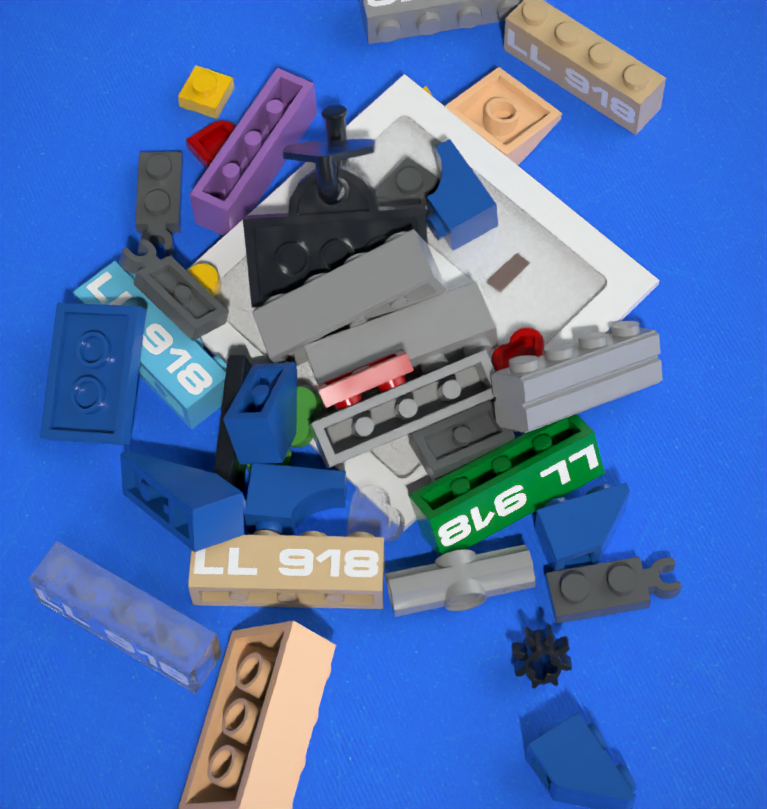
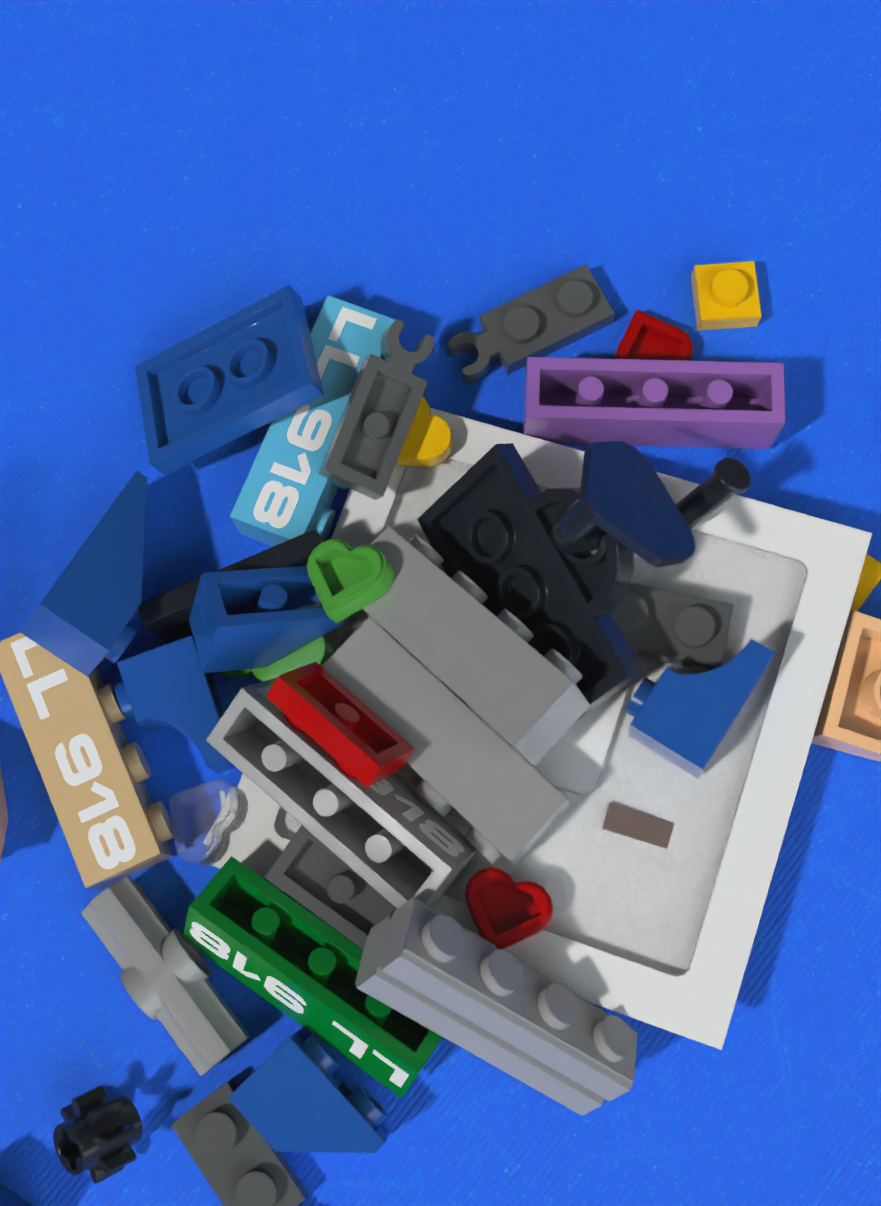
camera: 65 degrees right, 15 degrees up
(273, 343) = (348, 577): none -> bright green tile

